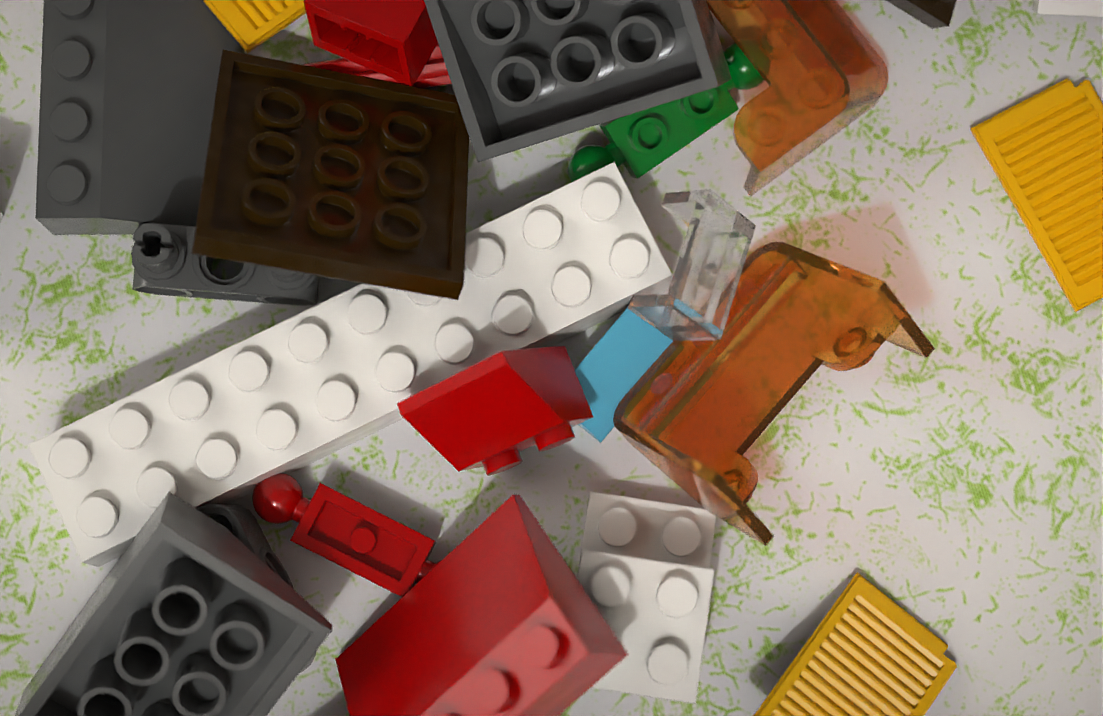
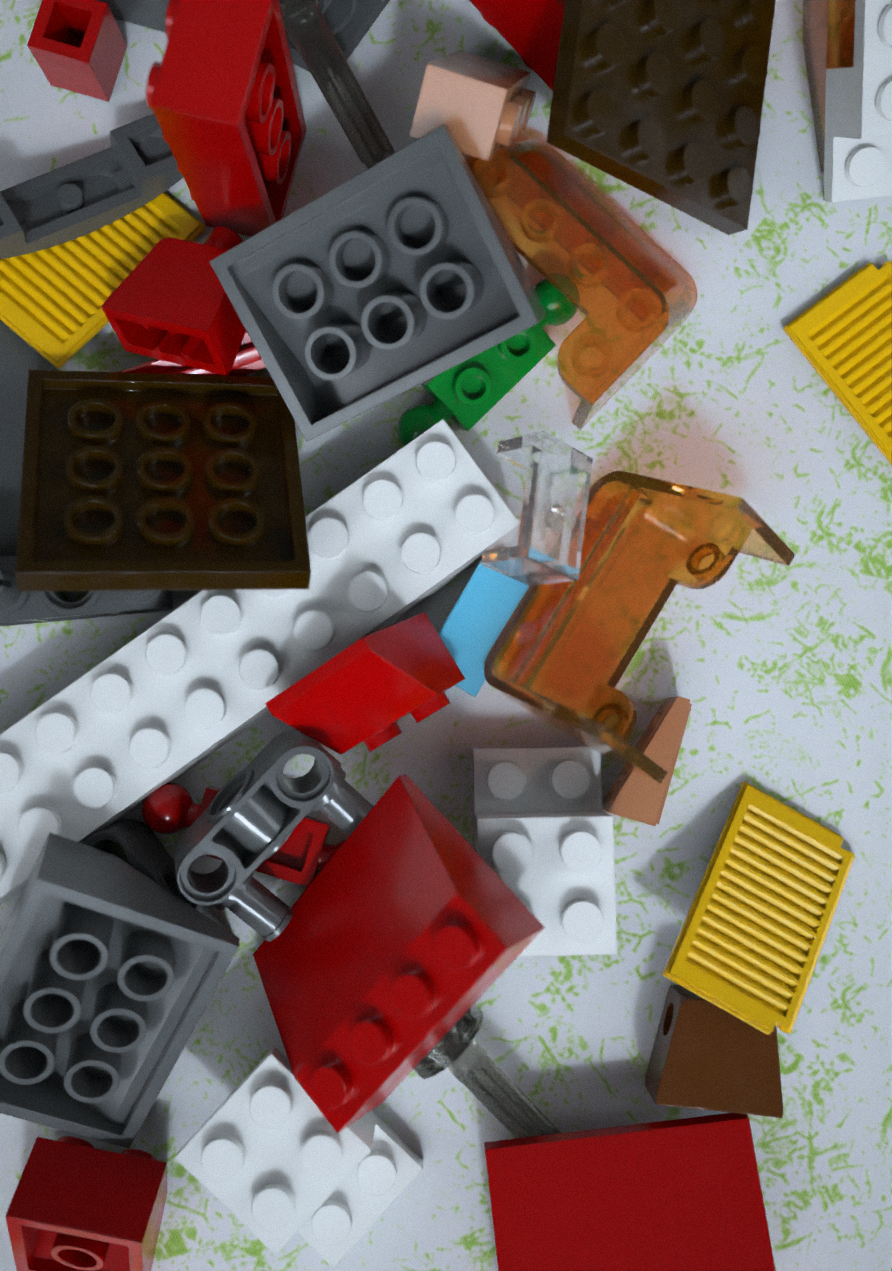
camera: 15 degrees left, 5 degrees up
(365, 516) = (254, 819): none -> dark grey piece
(749, 562) = (637, 795): none -> nougat slope

